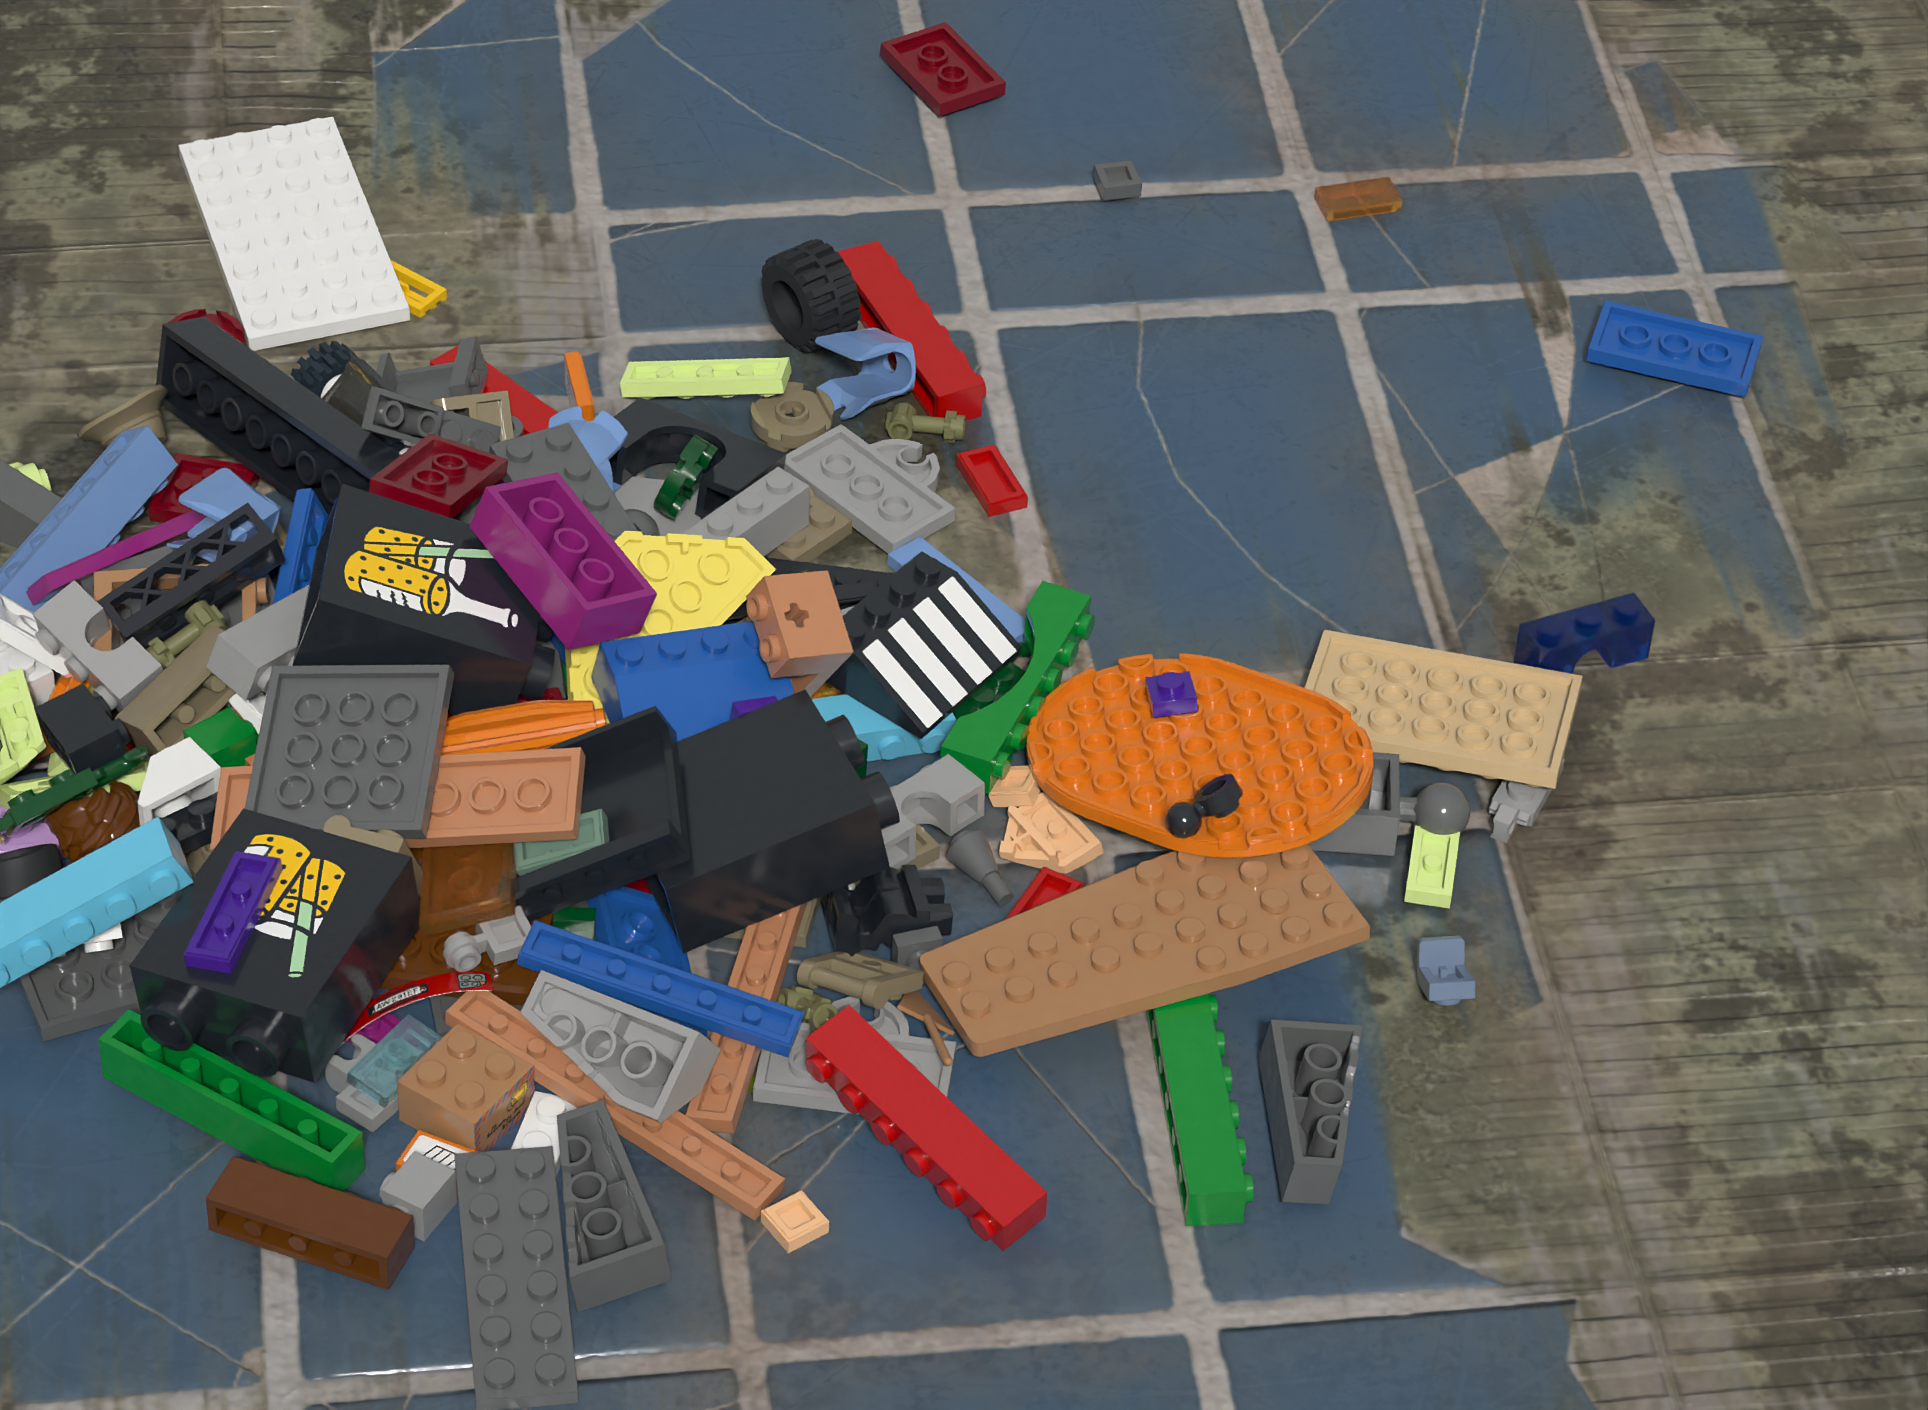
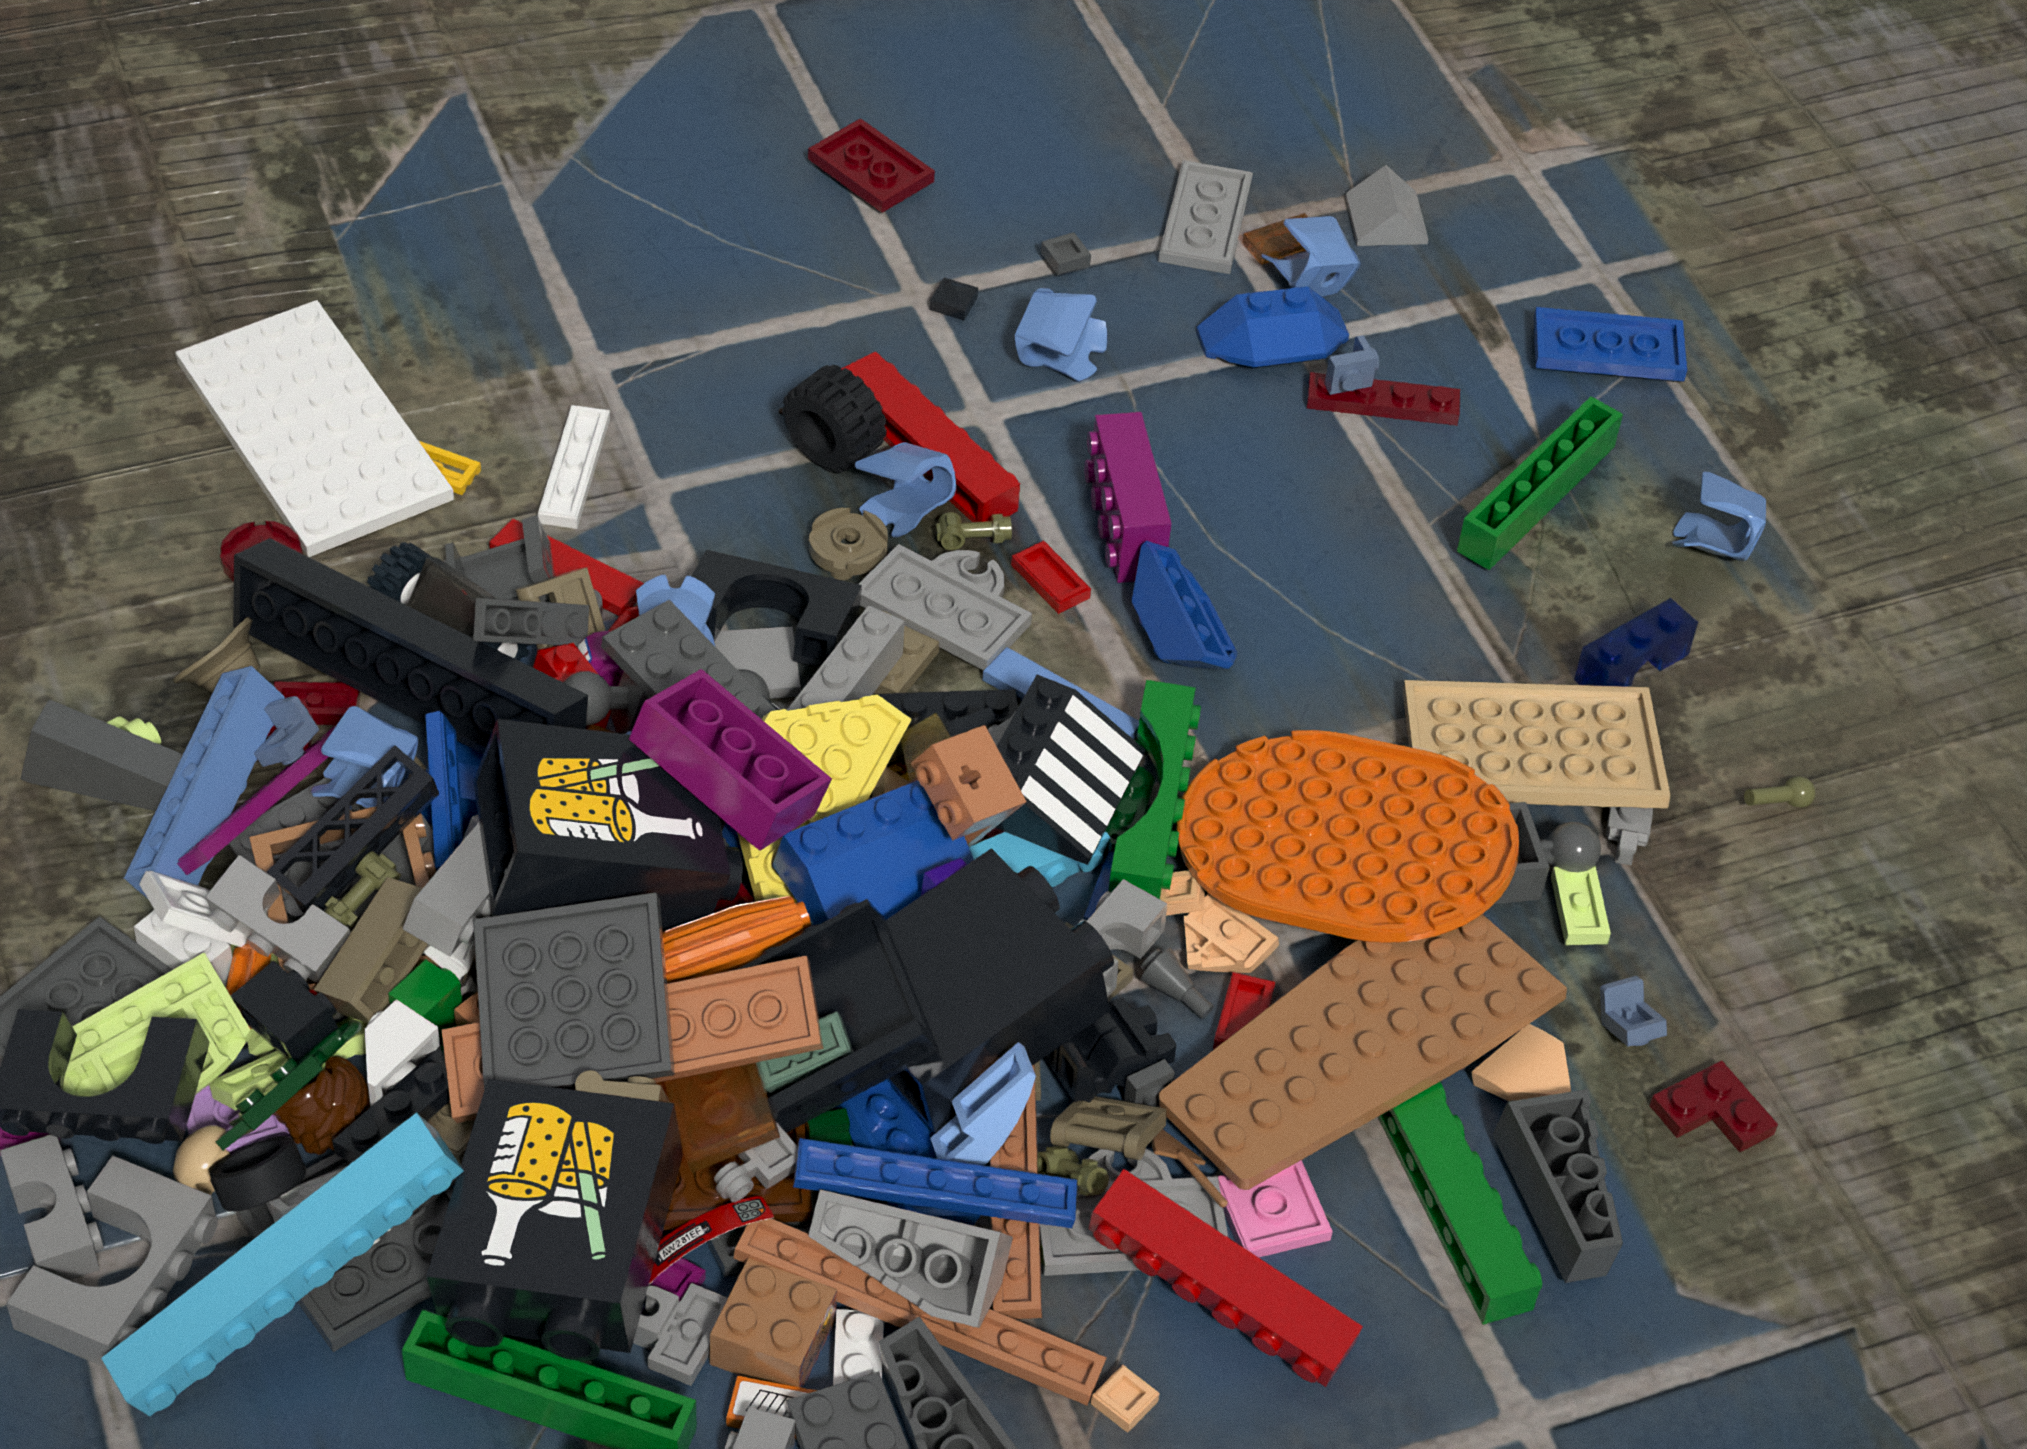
camera: 15 degrees left, 5 degrees up
(173, 481) = (293, 732): none -> sand blue bracket
(233, 912) = (516, 1199): dark purple tile -> none
(390, 1059) = (697, 1309): clear light blue plate -> none
(439, 476) = (569, 683): dark red plate -> none
(539, 307) = (574, 467): none -> white tile
(577, 385) = (640, 548): orange tile -> none
(685, 478) = (781, 627): dark green plate -> none
(706, 377) = (758, 517): yellowish green plate -> none
(733, 931) = (987, 1110): none -> light blue slope
(985, 207) = (954, 298): none -> black tile
(1008, 1086) = (1276, 1213): none -> bright pink tile
(1076, 255) = (1061, 333): none -> medium blue piece
(1089, 413) = (1125, 490): none -> magenta brick
(1108, 529) = (1178, 612): none -> blue wedge
(1171, 694) = (1303, 778): dark purple plate -> none
(1215, 798) = (1391, 885): black plate -> none
(1283, 167) = (1205, 217): none -> light grey tile
(1314, 280) = (1273, 328): none -> blue wedge
(1319, 997) = (1525, 1067): none -> light nougat slope
(1375, 327) = (1352, 369): none -> sand blue bracket
(1386, 213) = (1325, 253): none -> medium blue piece
(1408, 366) = (1388, 400): none -> dark red plate
(1480, 187) = (1385, 211): none -> light grey slope
(1505, 1064) = (1717, 1097): none -> dark red plate
(1540, 466) = (1539, 483): none -> green brick
(1712, 802) = (1796, 791): none -> olive bar
(1716, 547) = (1715, 537): none -> medium blue piece

